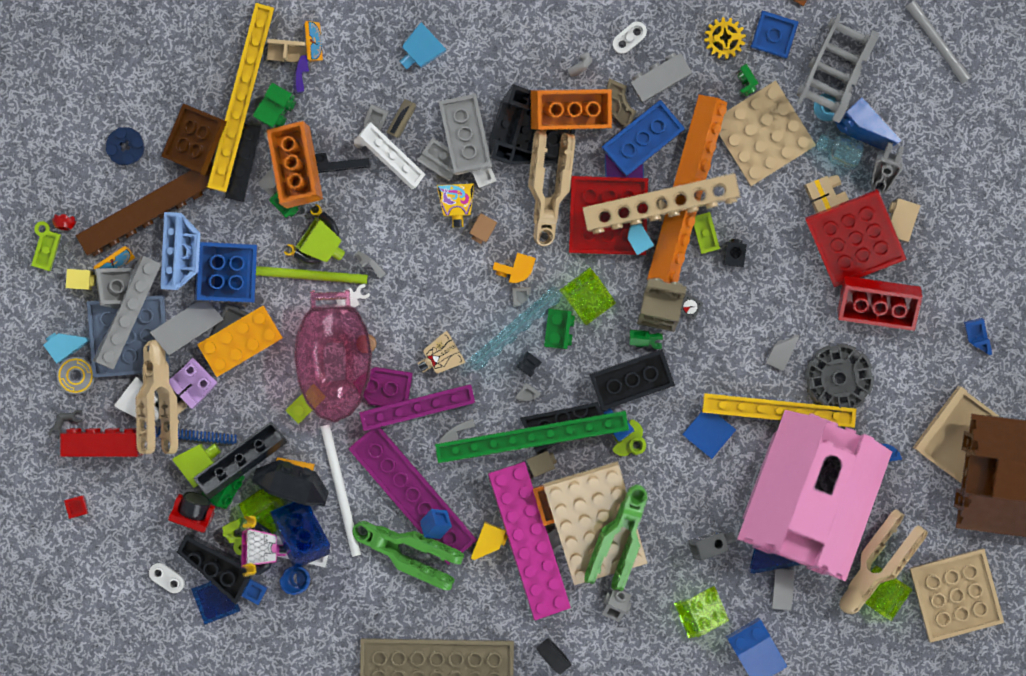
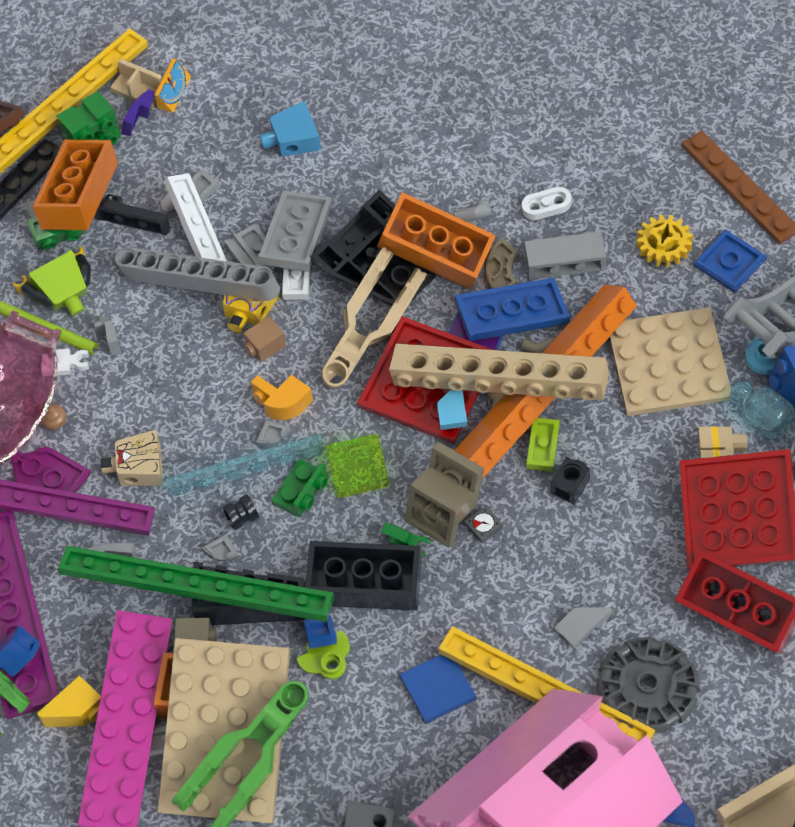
camera: 30 degrees right, 30 degrees down
(401, 118) = (232, 197): dark tan slope -> none
(406, 201) = (197, 273): none -> light grey beam
(673, 159) = (533, 347): none -> dark tan arm
(746, 77) = (670, 291): green bracket -> none

